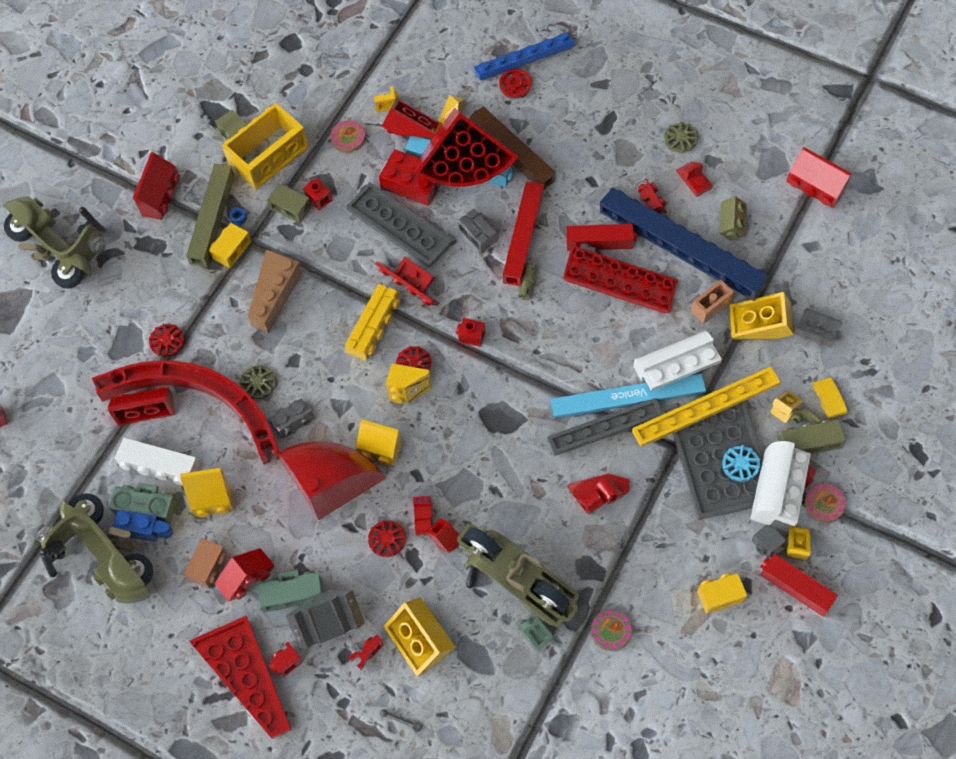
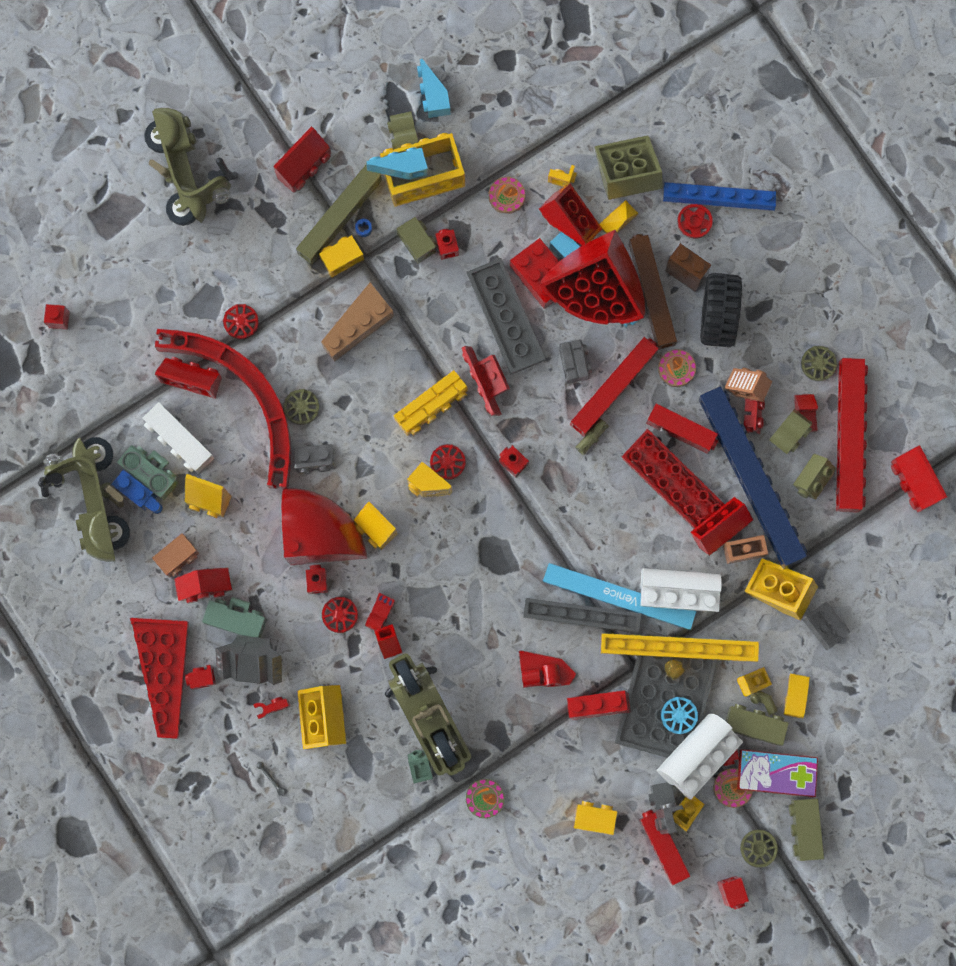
camera: 25 degrees right, 15 degrees up
(245, 89) = (436, 94): none -> medium azure slope
(246, 142) = (402, 165): none -> medium azure slope
(352, 523) = (319, 586): none -> red brick
(439, 69) = (629, 167): none -> olive slope
(531, 113) = (687, 267): none -> reddish brown brick
(567, 195) = (677, 368): none -> tile
(578, 126) = (721, 310): none -> black tyre
(634, 174) = (748, 384): none -> nougat brick
(665, 490) = (598, 705): none -> red brick
(680, 293) = (721, 526): none -> red brick
(691, 194) = (791, 431): none -> olive brick
(712, 426) = (674, 669): none -> clear yellow plate
(742, 176) = (851, 435): none -> red brick
(786, 550) = (665, 821): none -> flat silver bracket
(855, 469) = (777, 773): none -> tile
(880, 542) = (759, 848): none -> olive wheel
(884, 588) = (733, 892): none -> red brick
(911, 502) = (806, 829): none -> olive brick

